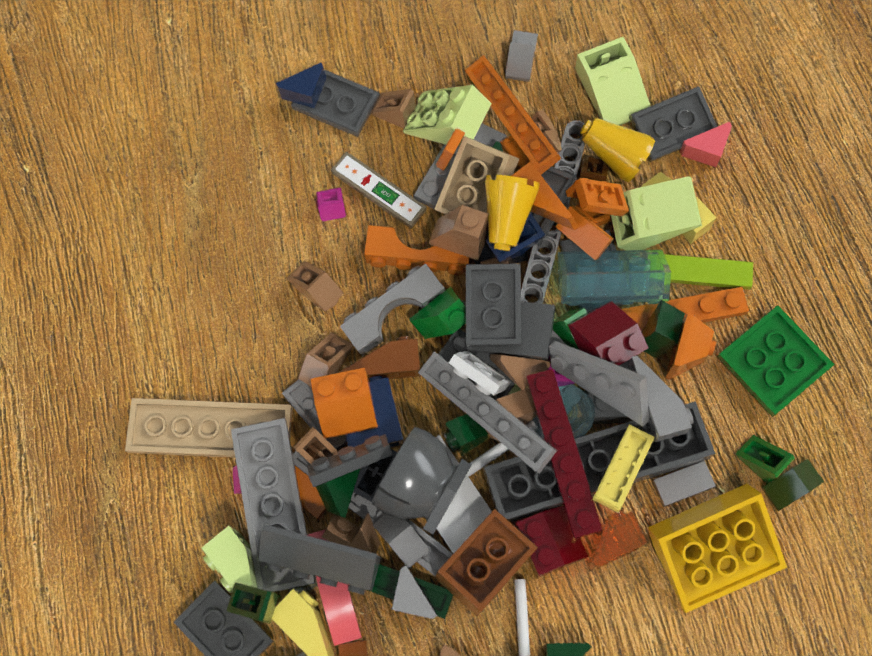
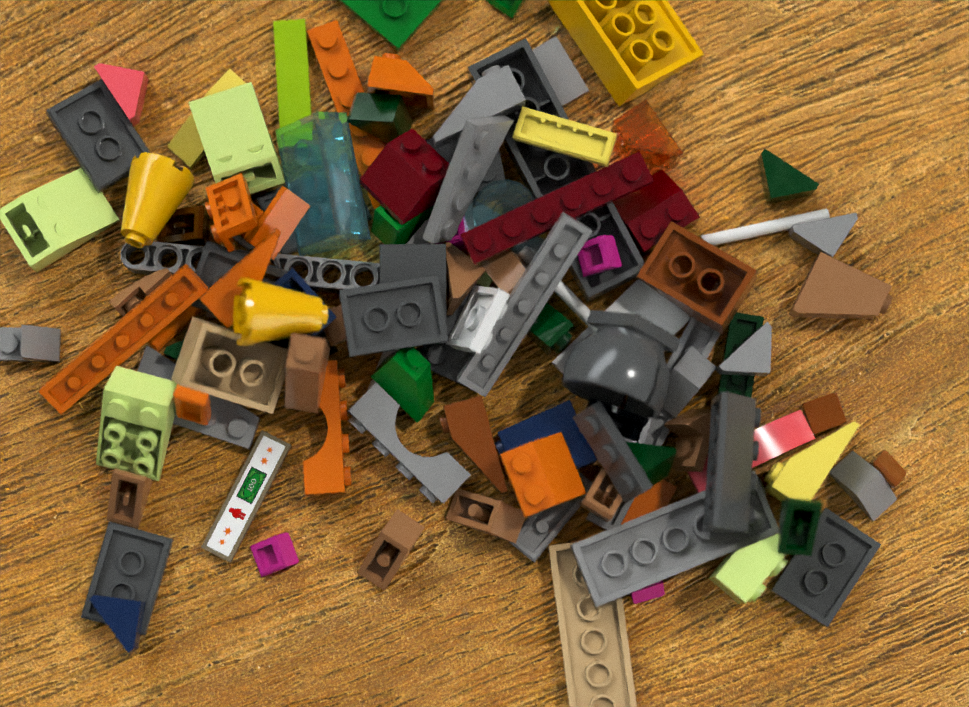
camera: 110 degrees left, 10 degrees up
(517, 481) = (599, 255): none -> dark pink slope

